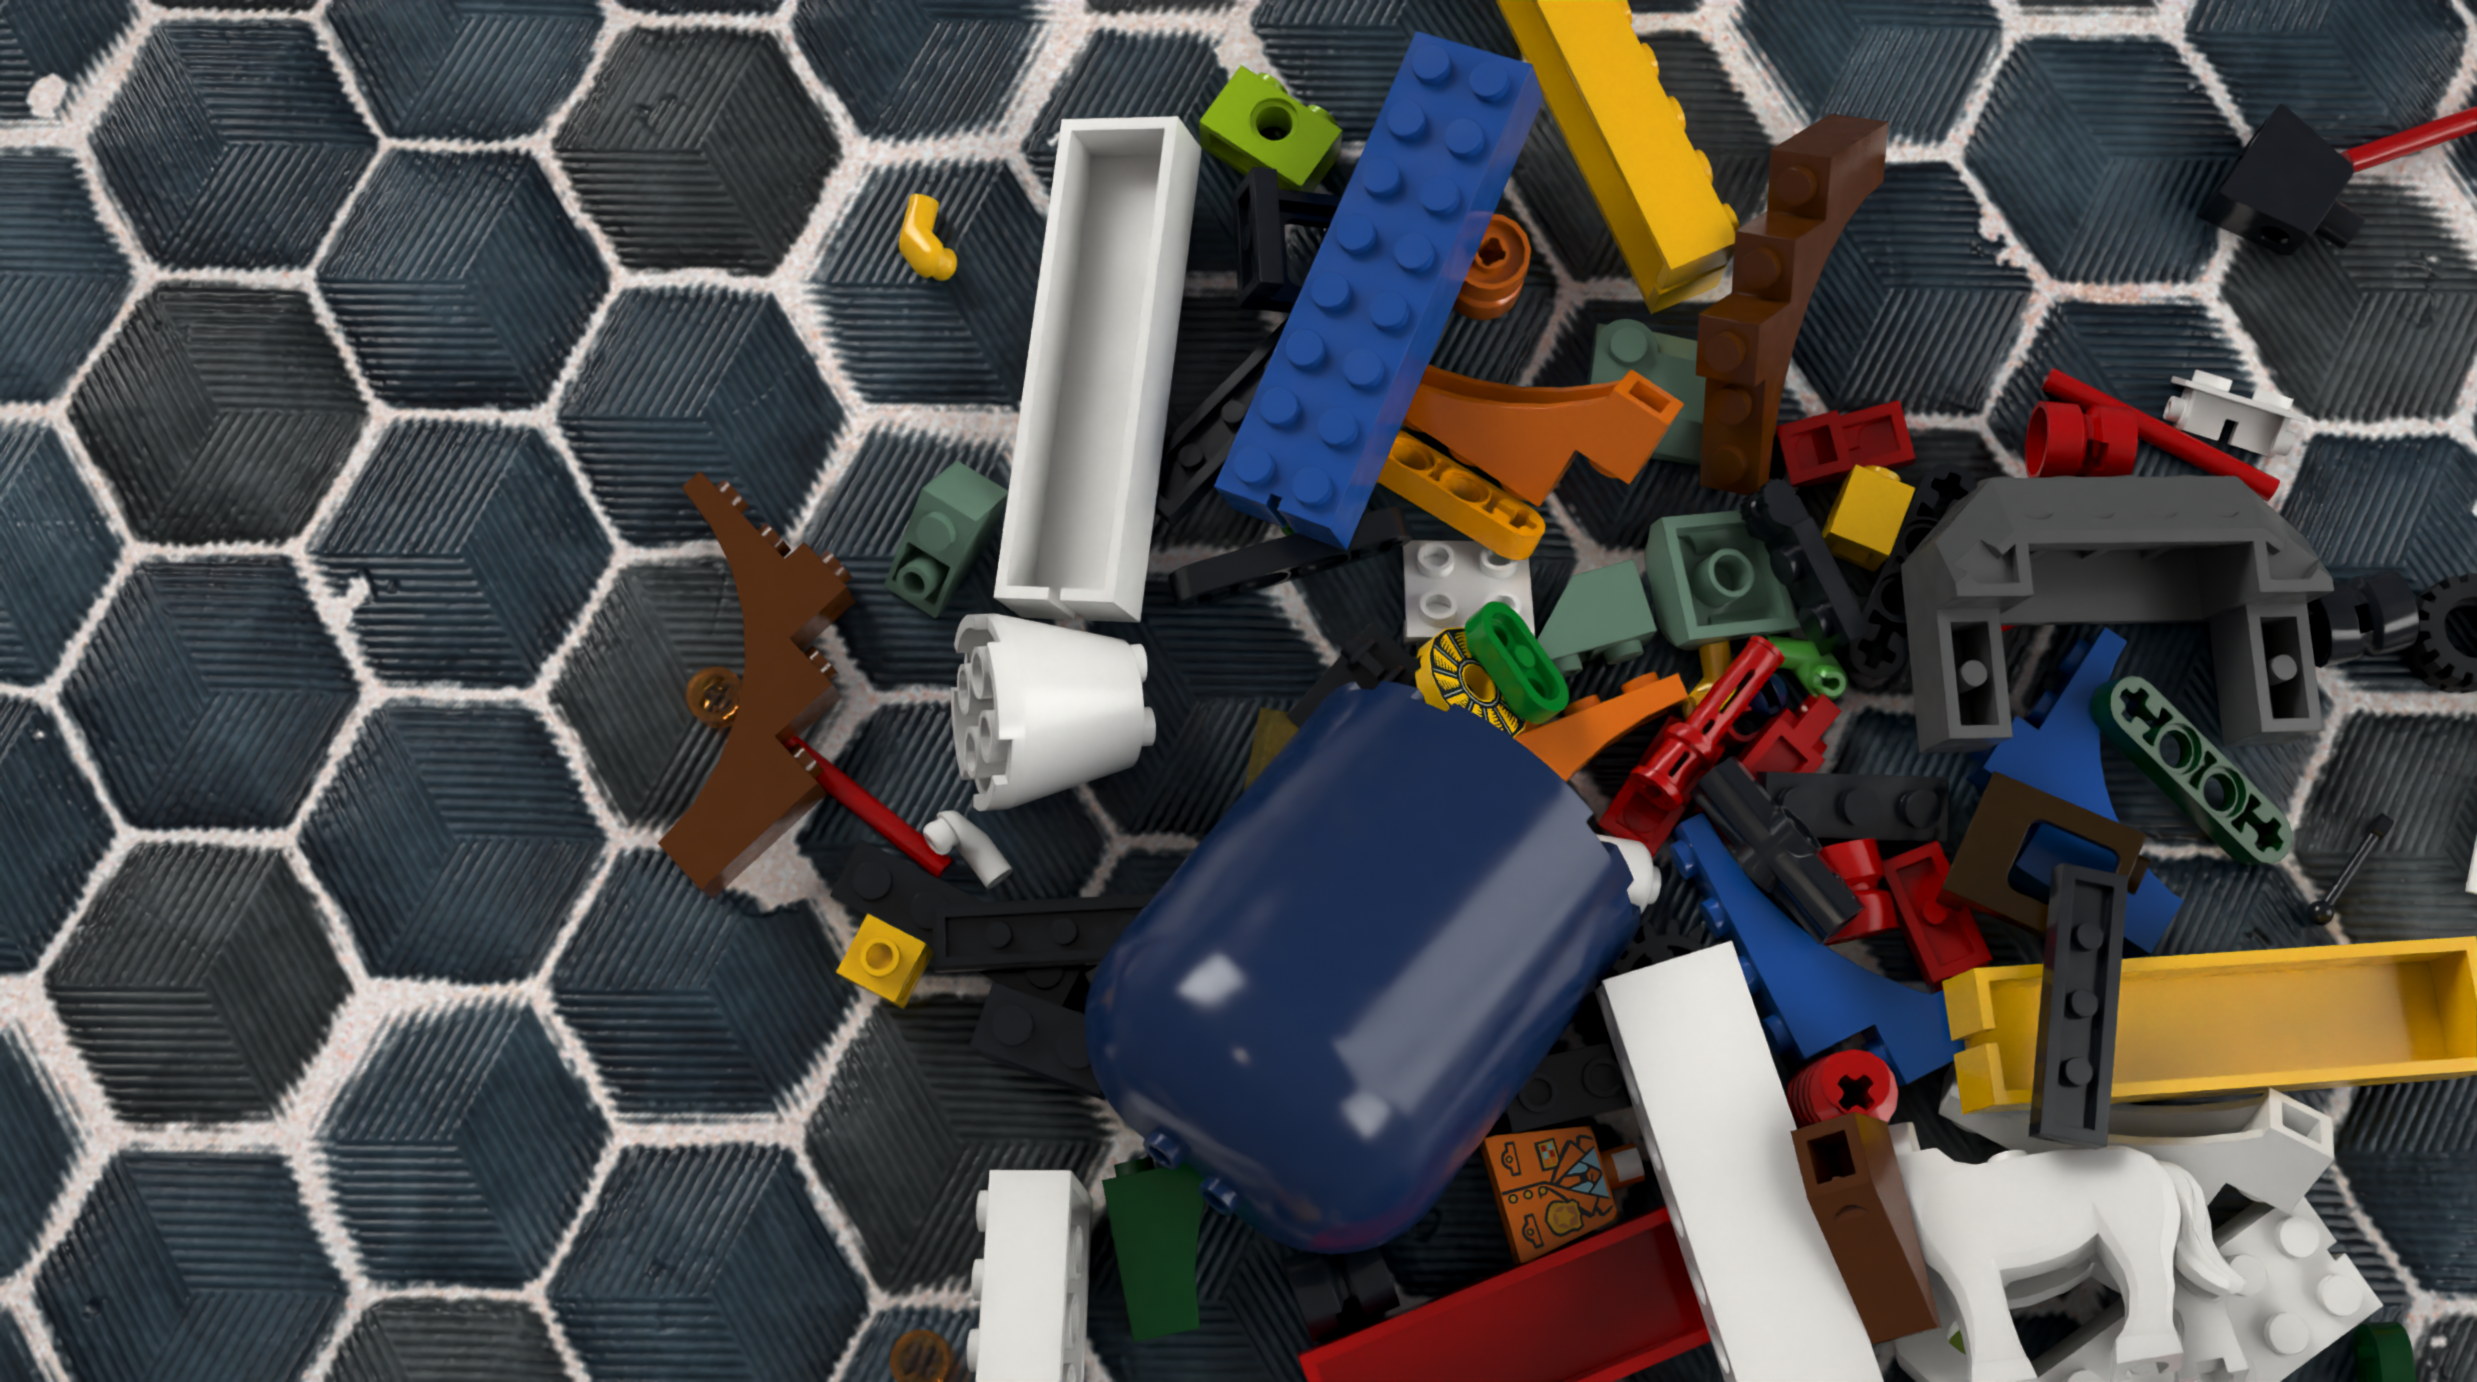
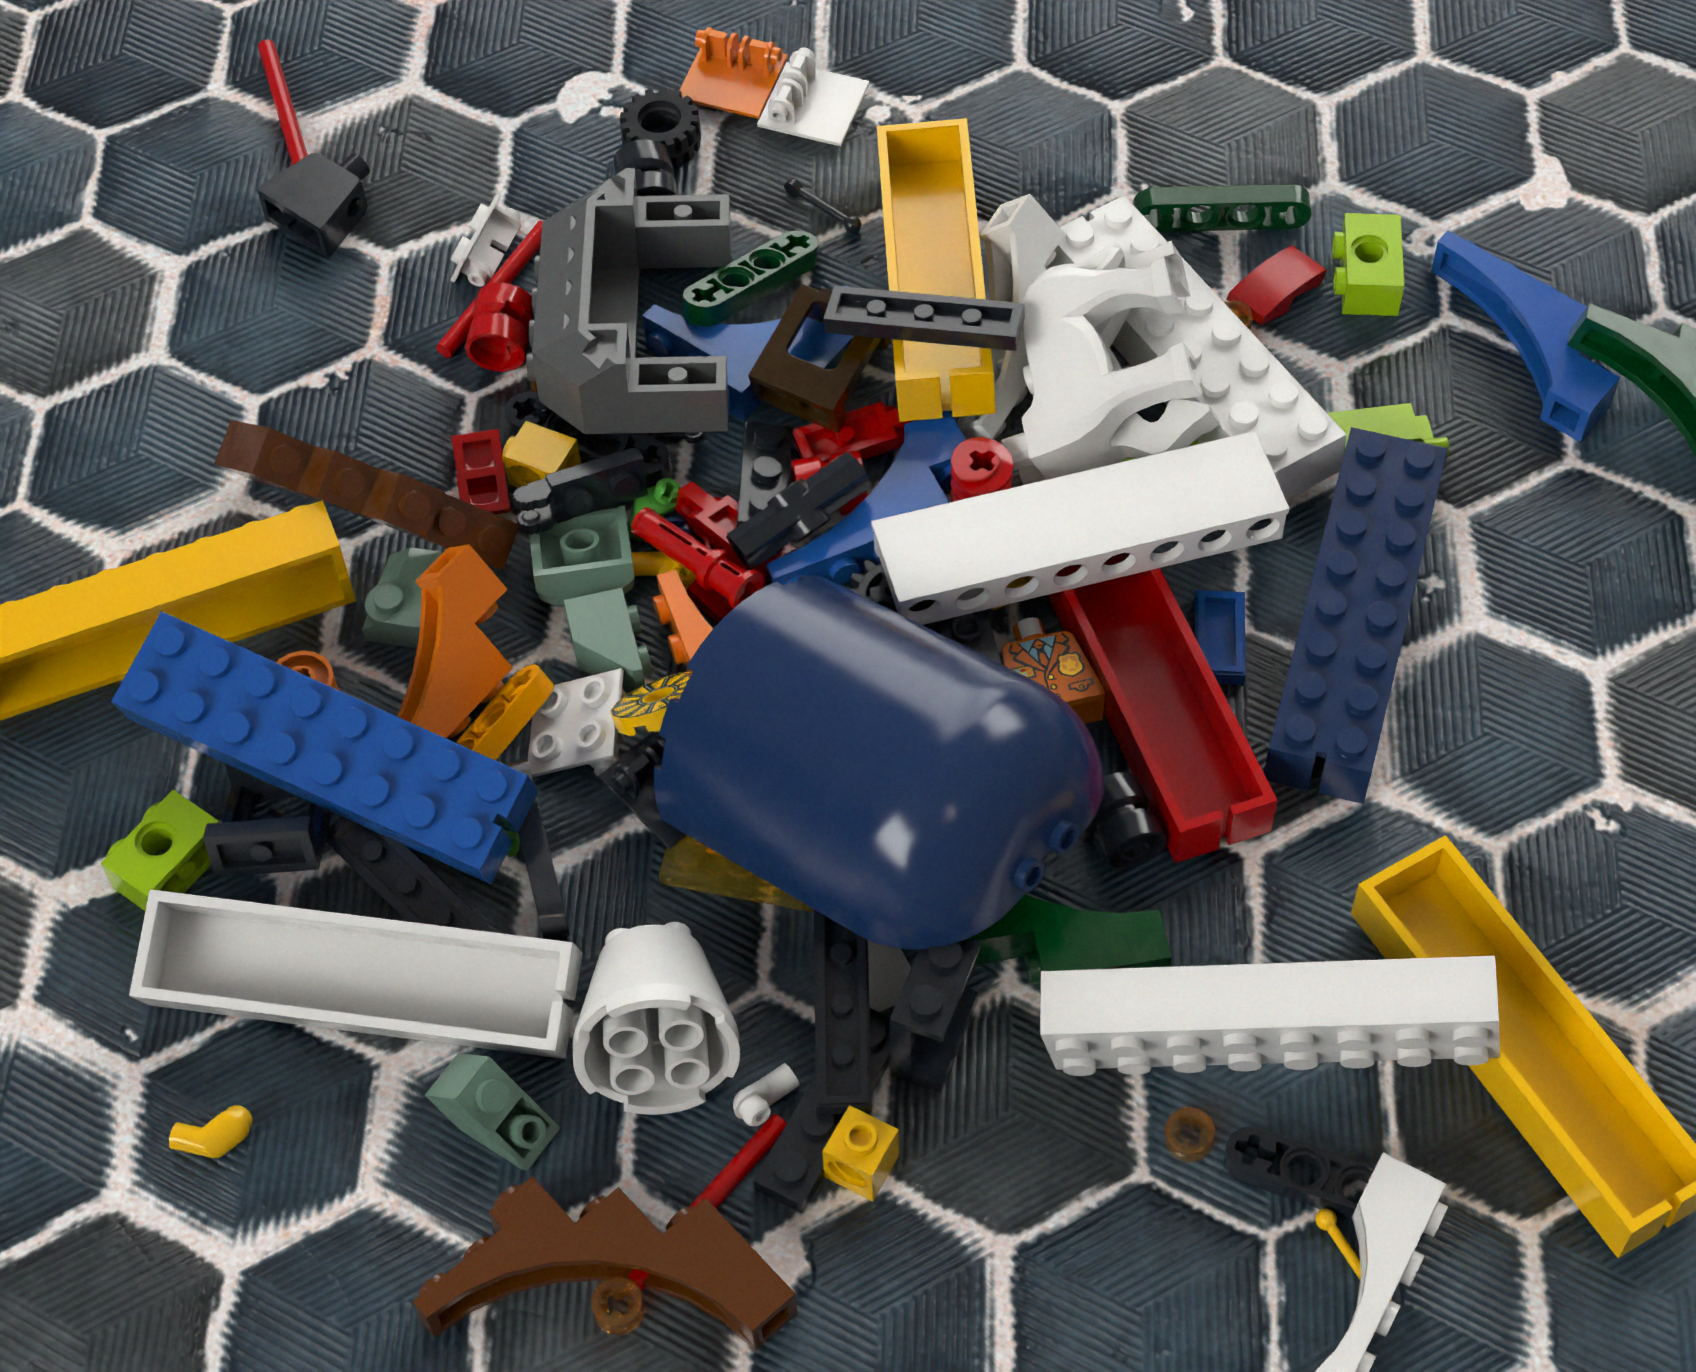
camera: 85 degrees left, 20 degrees down
(1516, 663) = (659, 665): green plate -> none
(1867, 1223) = (1080, 445): reddish brown slope -> none

